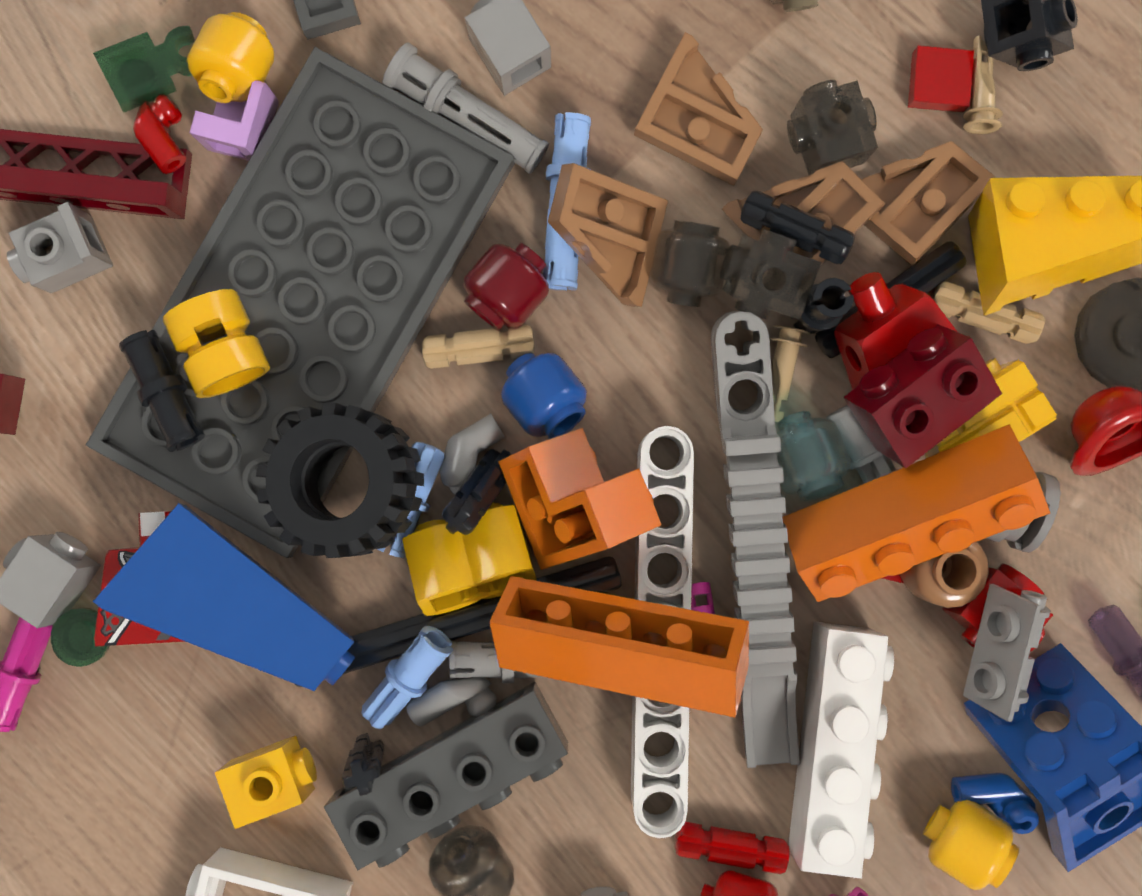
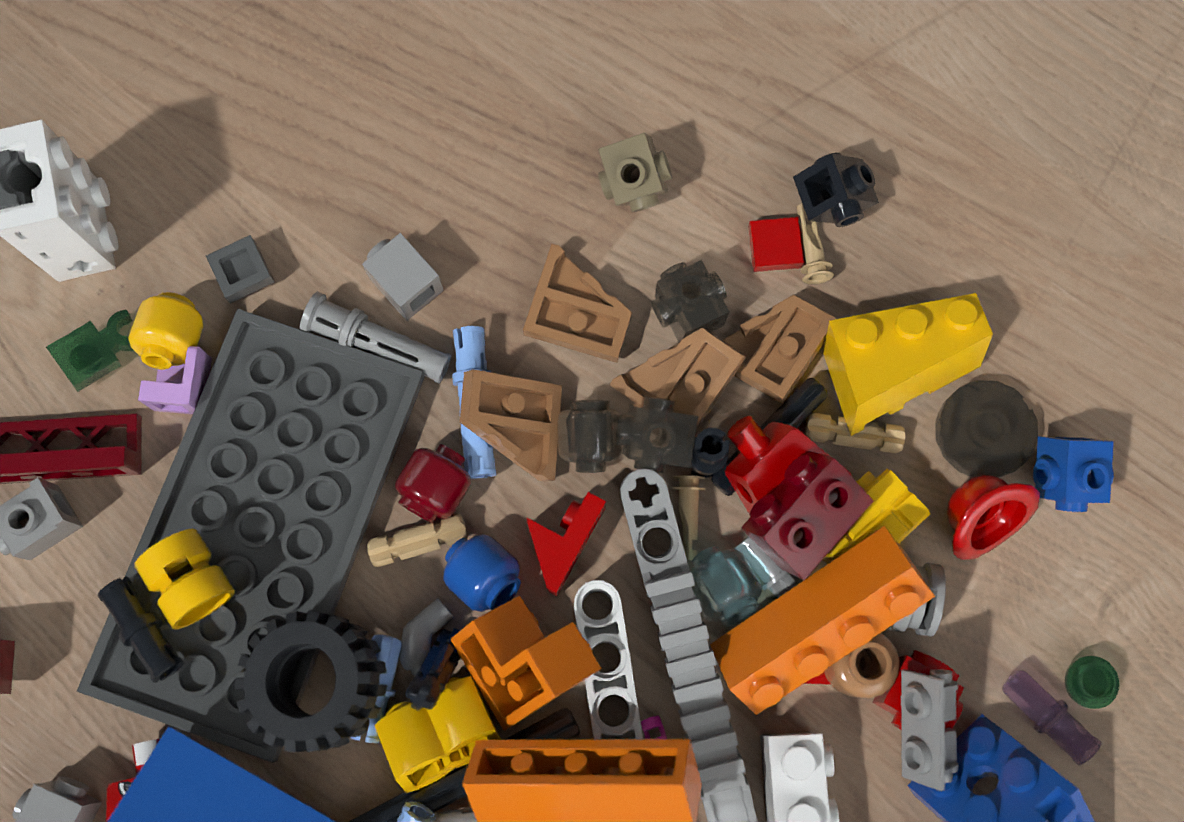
camera: 10 degrees left, 10 degrees down
(153, 133) = (106, 405): red arm -> none
(631, 388) = (558, 553): none -> red slope
(799, 225) = (675, 387): black axle -> none

